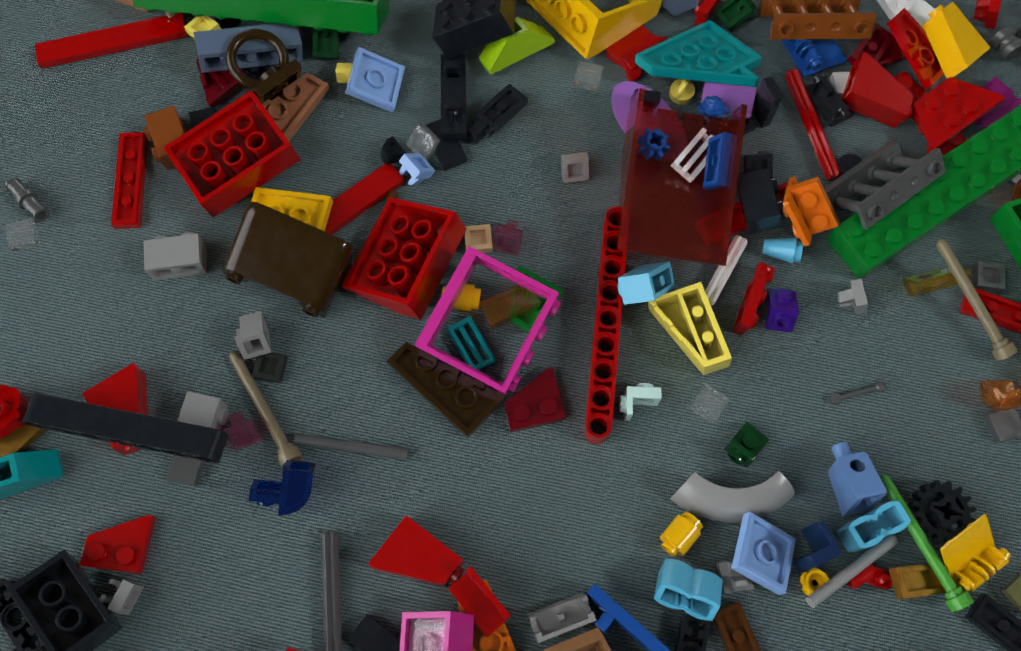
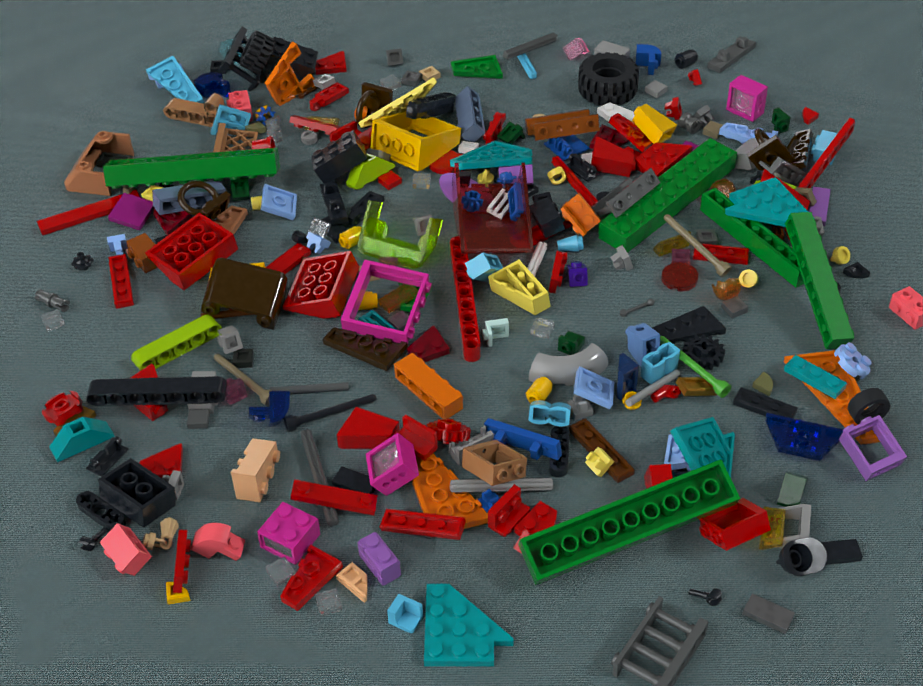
camera: 10 degrees left, 25 degrees down
(44, 518) = (108, 457): none -> black hinge
(82, 135) = (82, 261): none -> black plant
(134, 113) = (117, 243): none -> light blue tile
(167, 53) = (131, 211): none -> magenta tile
(175, 256) = (164, 311): light grey brick -> none
(180, 322) = (177, 342): none -> lime beam
(242, 597) = (255, 470): none -> light nougat wedge
(315, 511) = (292, 422): none -> black piece
(466, 168) = (350, 237): none -> yellow brick
(505, 345) = (399, 320): none -> flat silver tile
(517, 199) = (376, 243): none -> clear neon green windscreen
(521, 487) = (428, 386): none -> orange brick
(531, 592) = (450, 430): none -> red gear
(534, 16) = (378, 153): none -> light grey tile
(543, 64) = (390, 180): none -> red tile
(668, 25) = (467, 146): none -> white tile
(766, 101) = (540, 171): black tile -> none
(788, 104) = (555, 173): none -> light yellow tile
(926, 451) = (692, 323): none -> black wing
(934, 346) = (680, 276): none -> clear red tile
(942, 308) = (680, 255): none -> clear pink tile
(973, 555) = (724, 363): yellow hinge -> none

